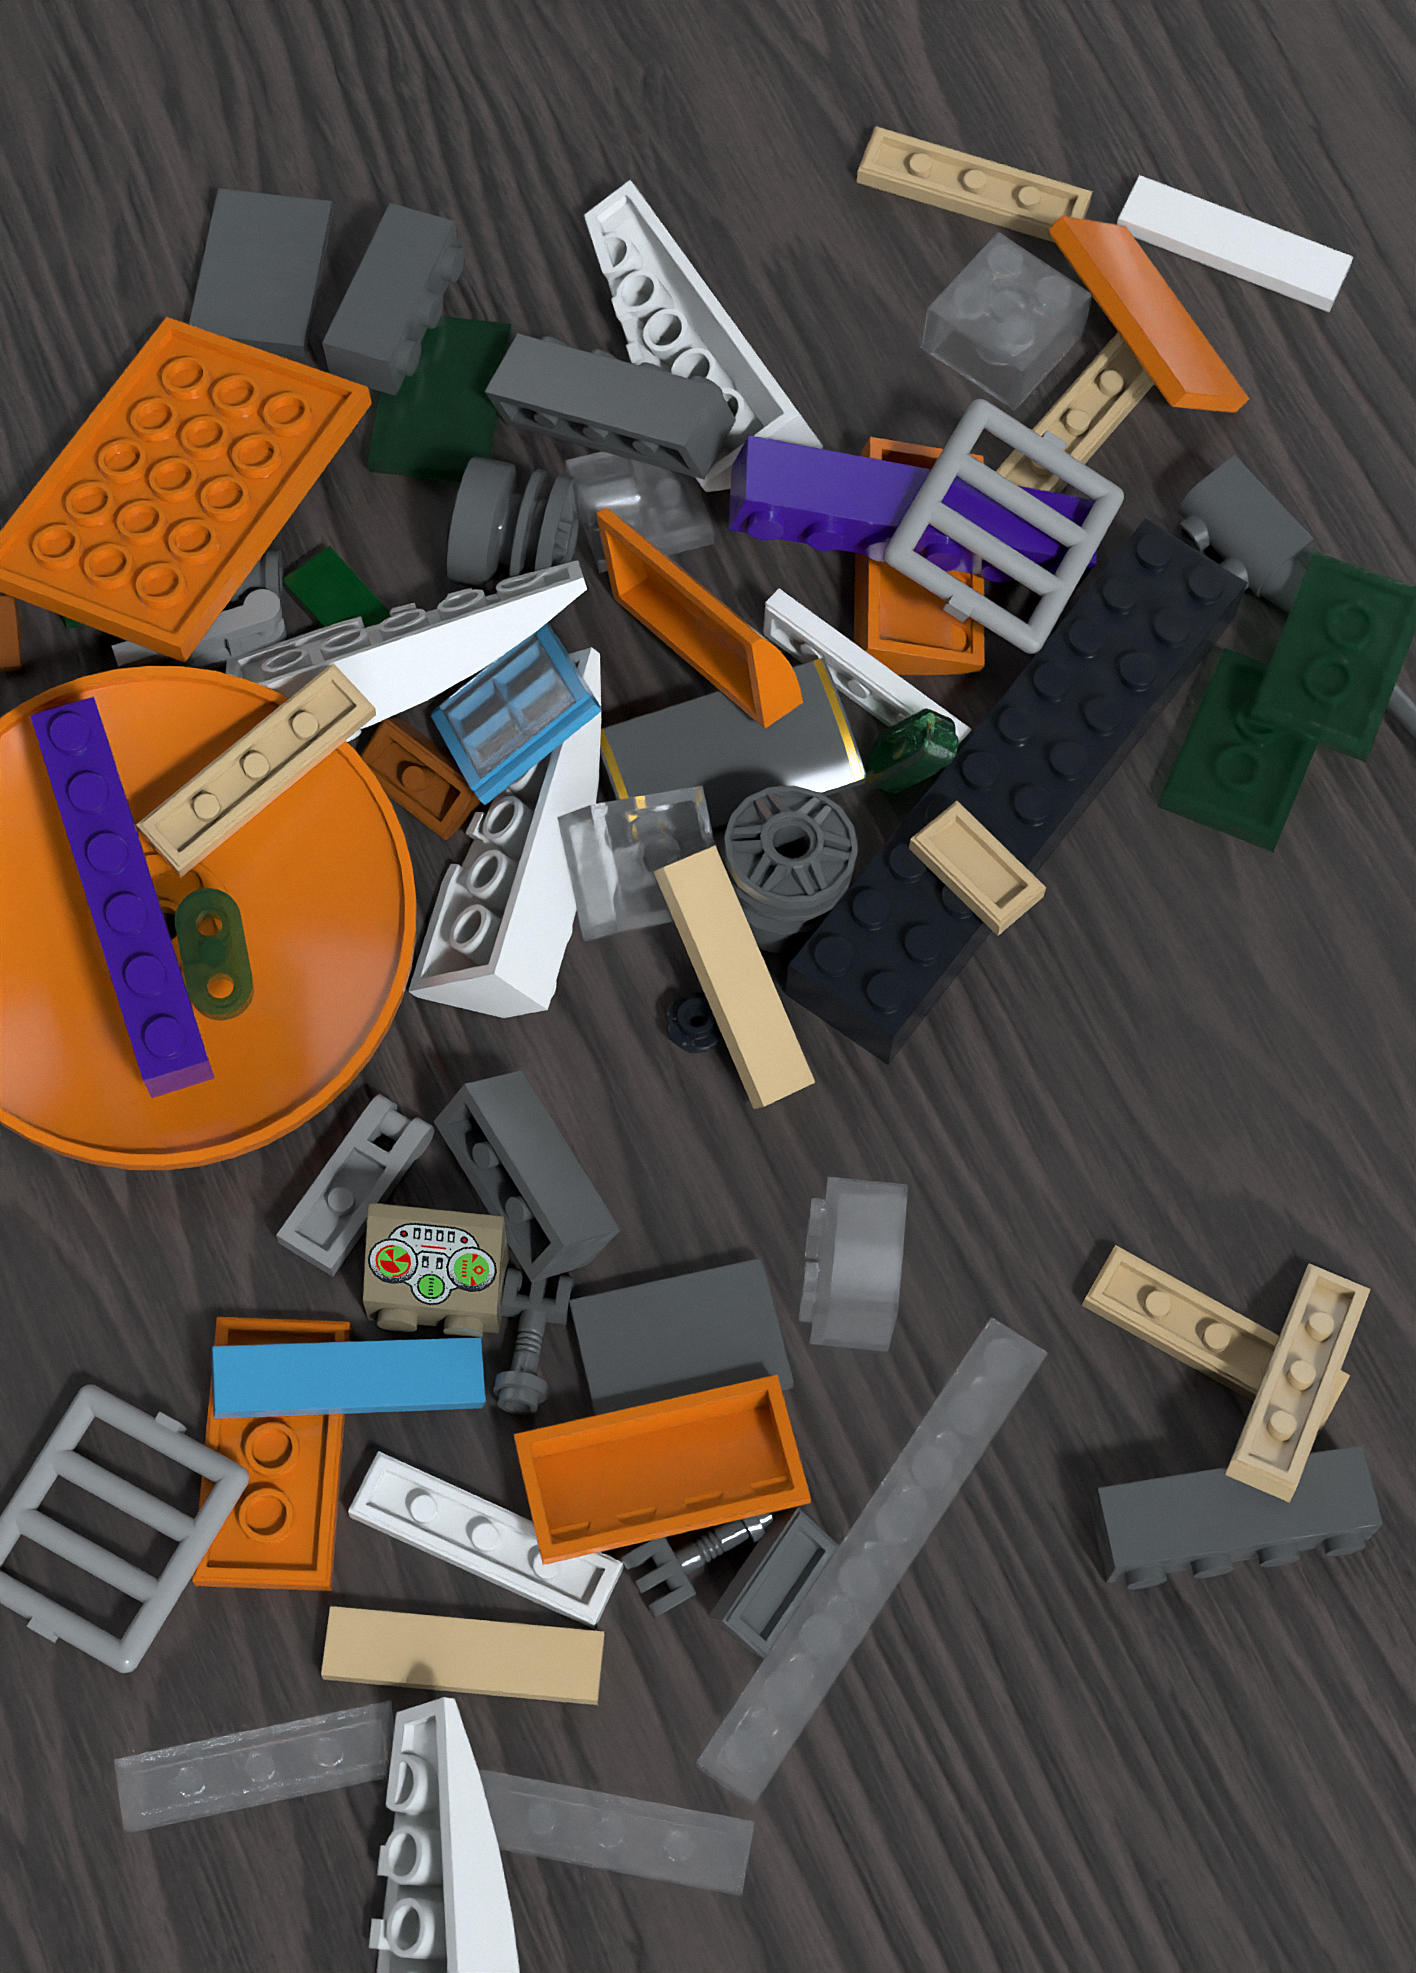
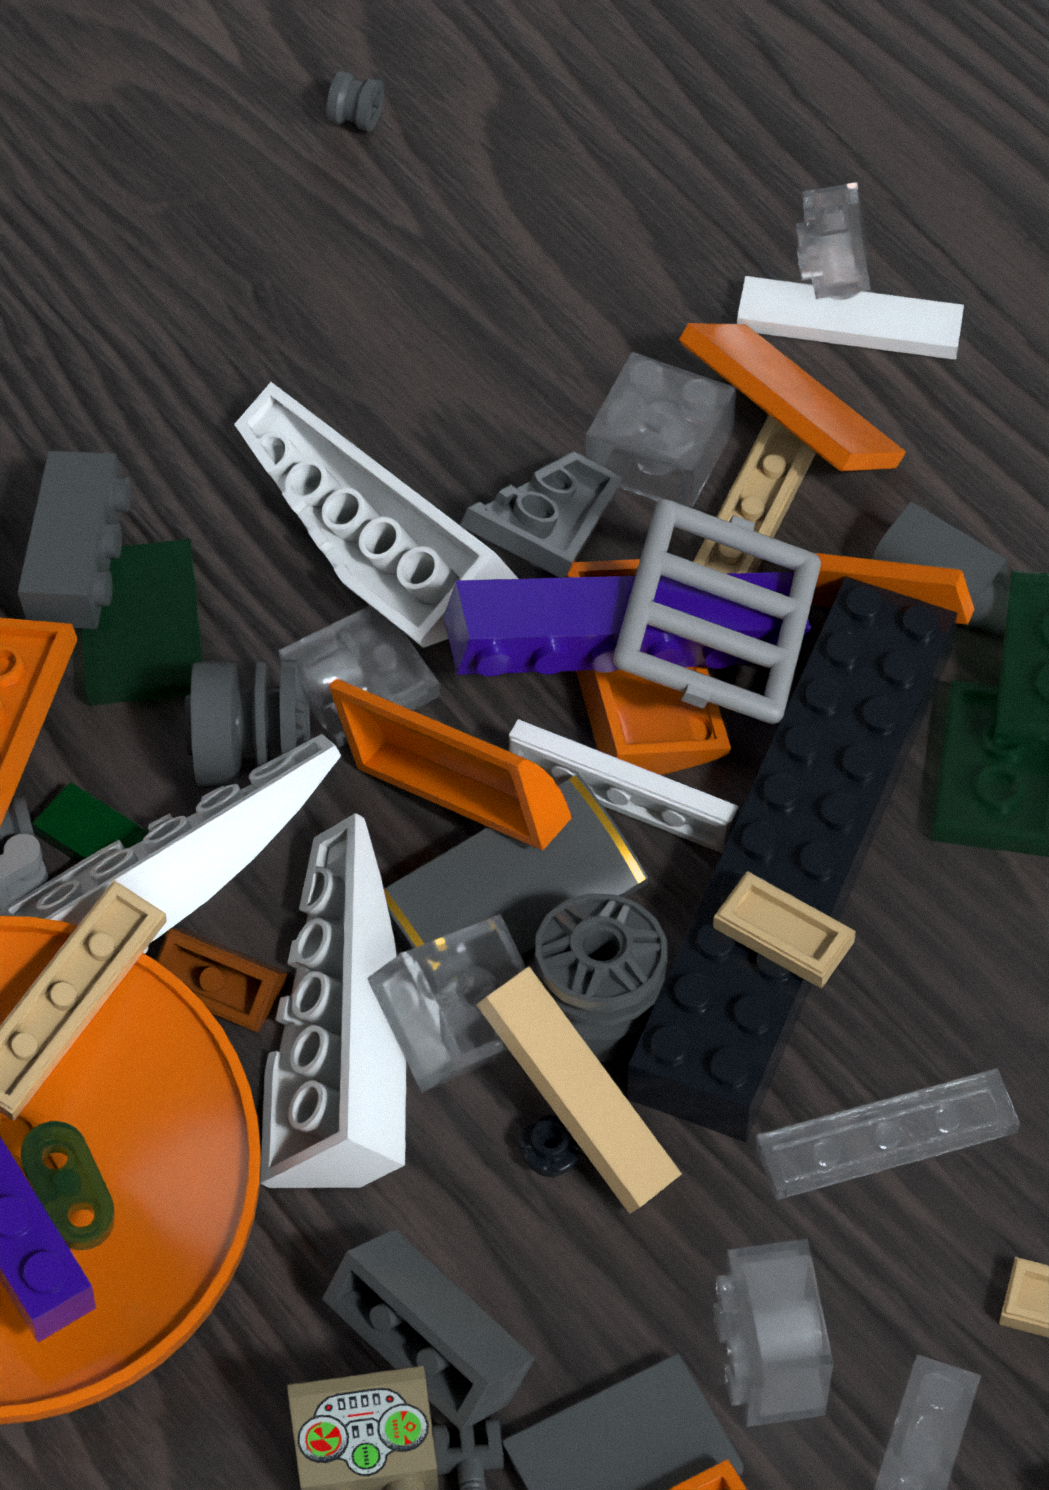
camera: 10 degrees left, 10 degrees down
(359, 1173) = (255, 1383): light grey plate -> none
(515, 713) = (296, 893): clear piece -> none
(611, 405) = (311, 587): dark grey brick -> none
(870, 384) = (550, 514): none -> dark grey wing
(911, 751) = (687, 839): clear green plate -> none
(968, 184) = (588, 319): tan tile -> none
(1027, 1091) = (887, 1134): none -> clear tile
(1225, 546) = (926, 583): none -> orange tile
(1237, 161) = (834, 242): none -> clear brick

